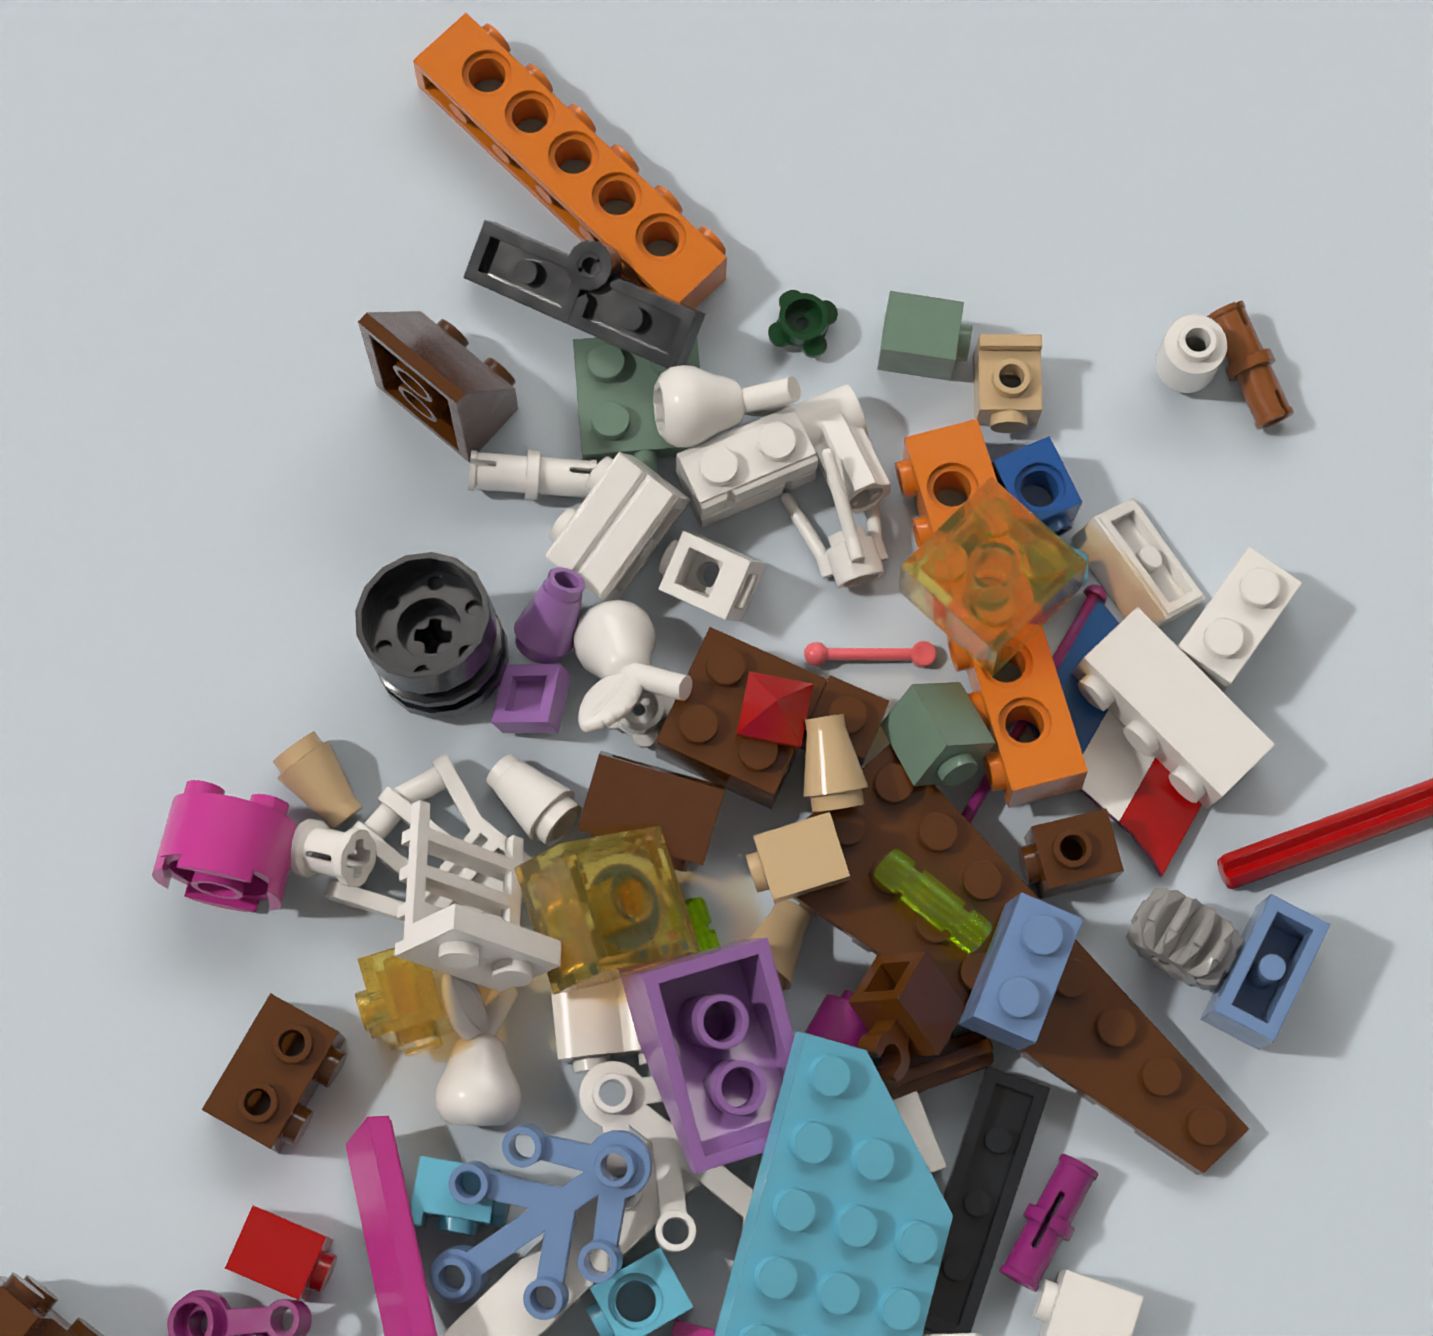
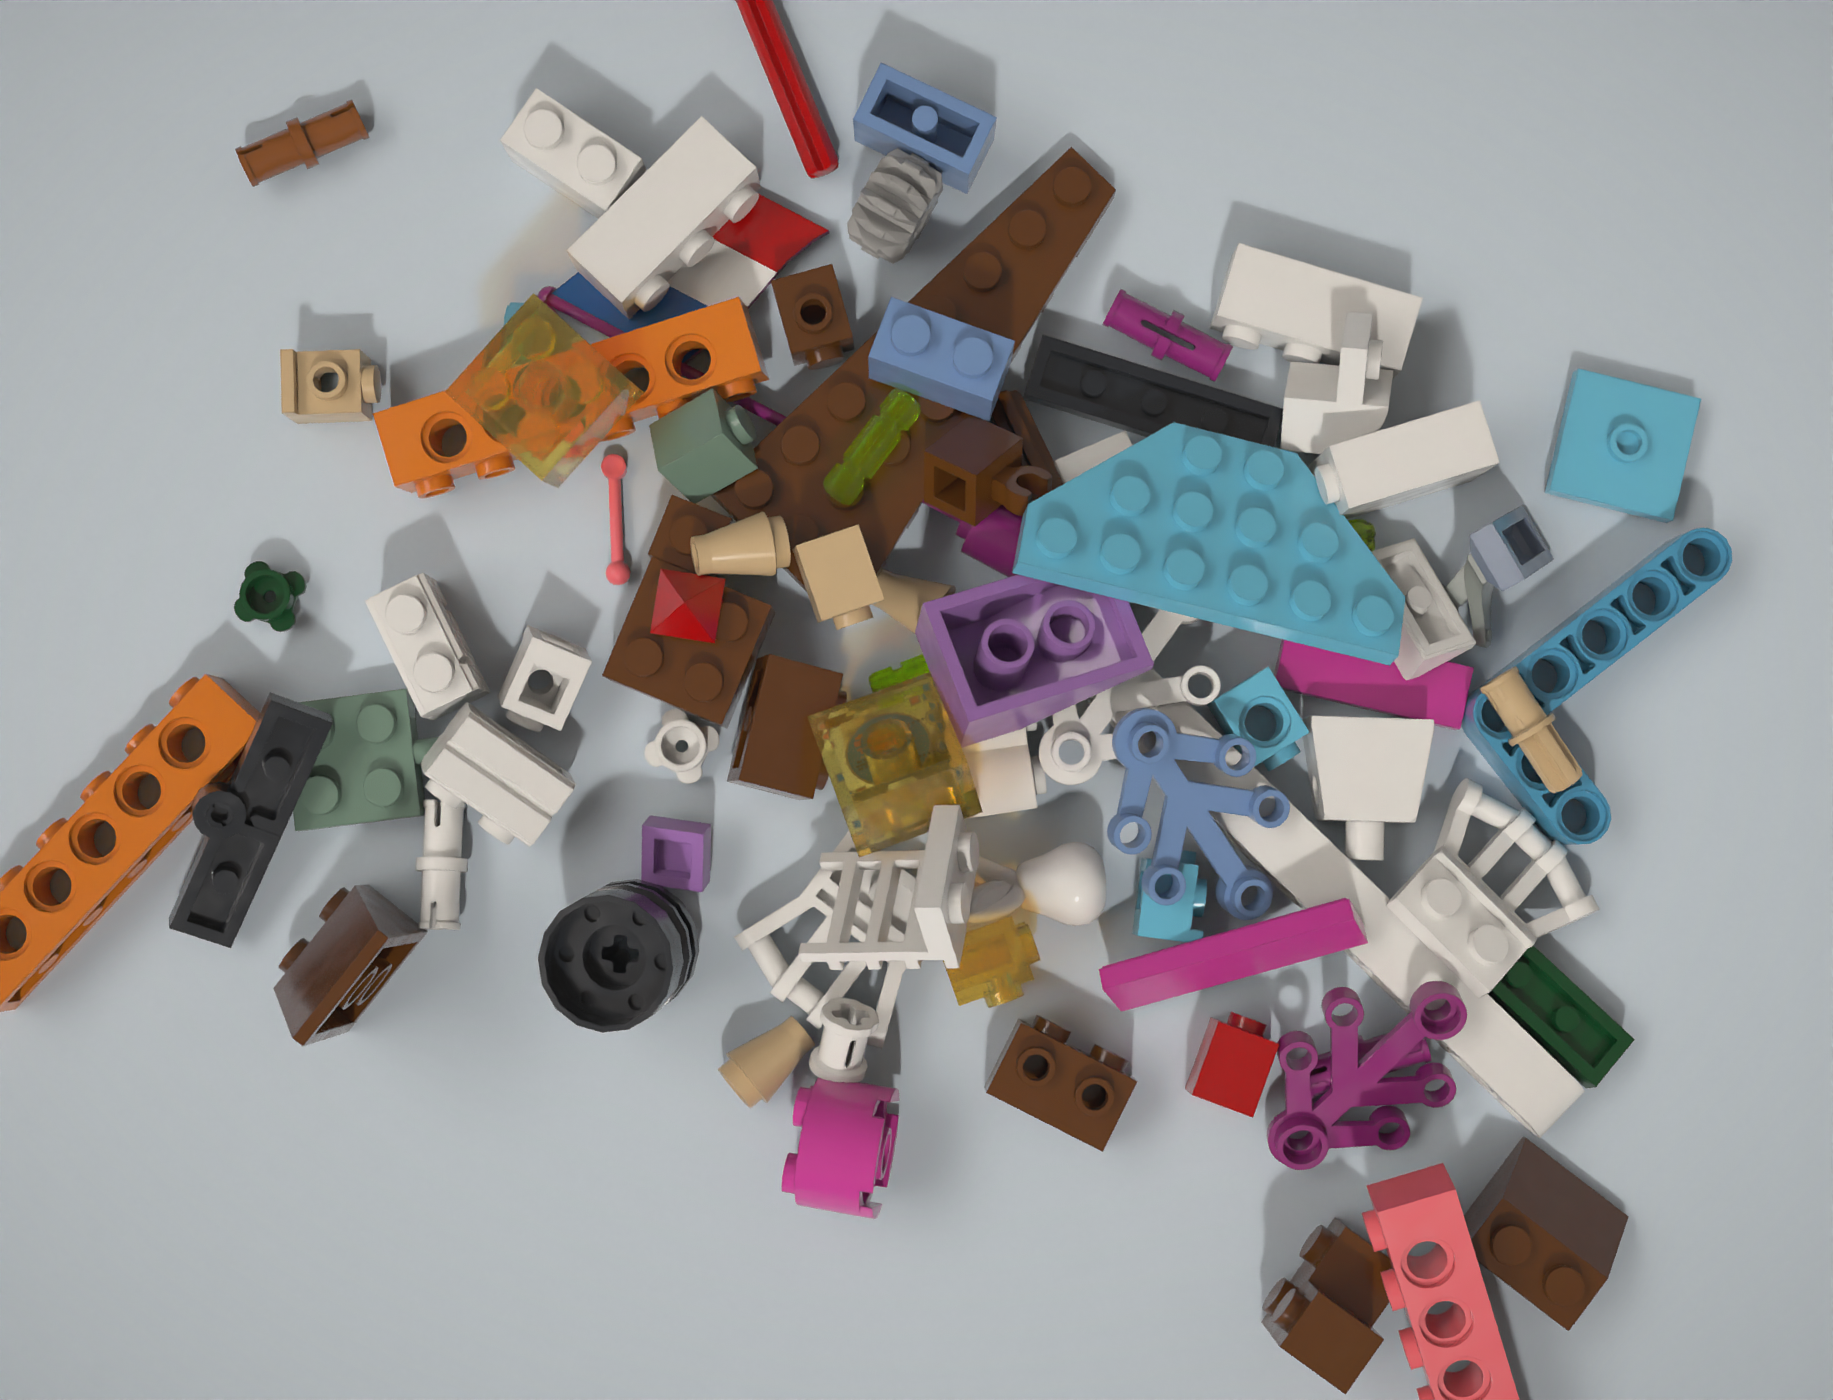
camera: 90 degrees left, 10 degrees up
(535, 800) = (778, 845): white cone -> none
(550, 618) = (595, 837): medium lavender cone -> none
(617, 646) = (621, 769): white piece -> none
(699, 404) = (368, 694): white piece -> none
(839, 423) = (412, 547): white piece -> none
(853, 554) = (514, 537): white plant -> none
(923, 336) = (281, 472): sand green brick -> none
(1041, 466) = (419, 346): blue brick -> none
(1137, 564) = (516, 256): white slope -> none
(1190, 353) = (294, 200): white brick -> none

